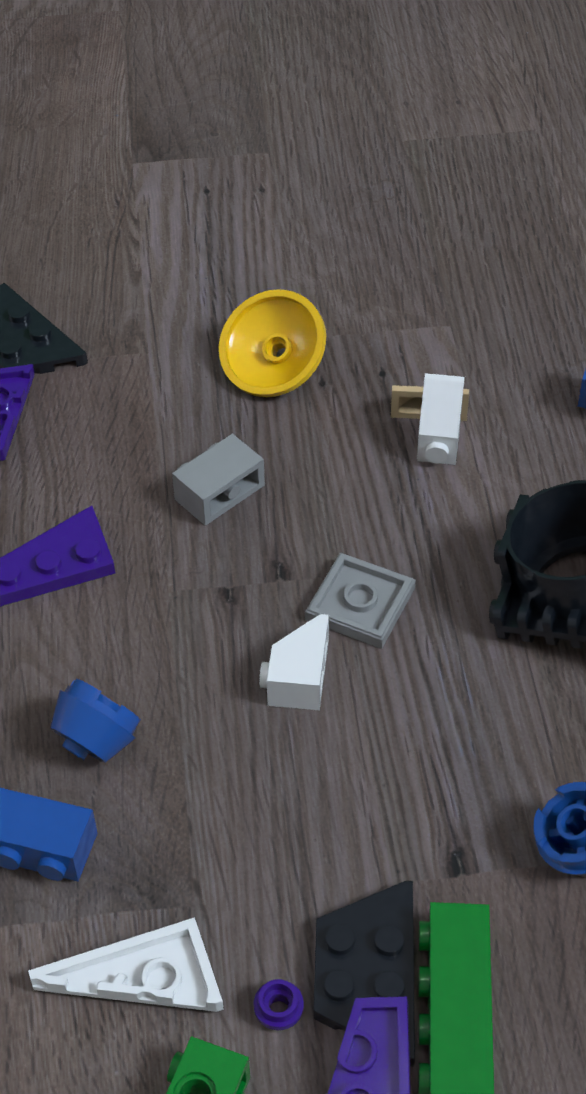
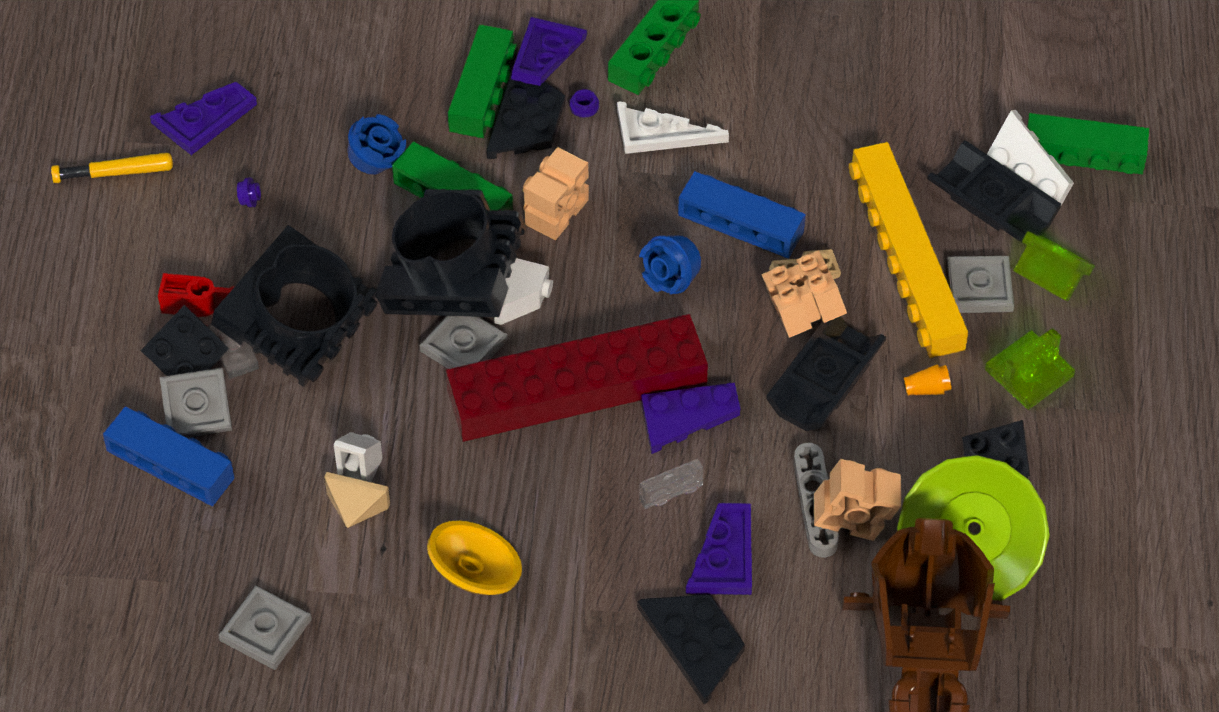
camera: 170 degrees left, 5 degrees up
(61, 465) = (670, 484): none -> clear plate
(195, 563) = (576, 377): none -> dark red brick
(218, 479) = (547, 449): light grey brick -> none
(282, 794) = (555, 193): none -> light nougat brick
(403, 616) = (459, 286): none -> black hose
(443, 802) = (423, 169): none -> green brick
(477, 282) = (265, 627): none -> light grey tile

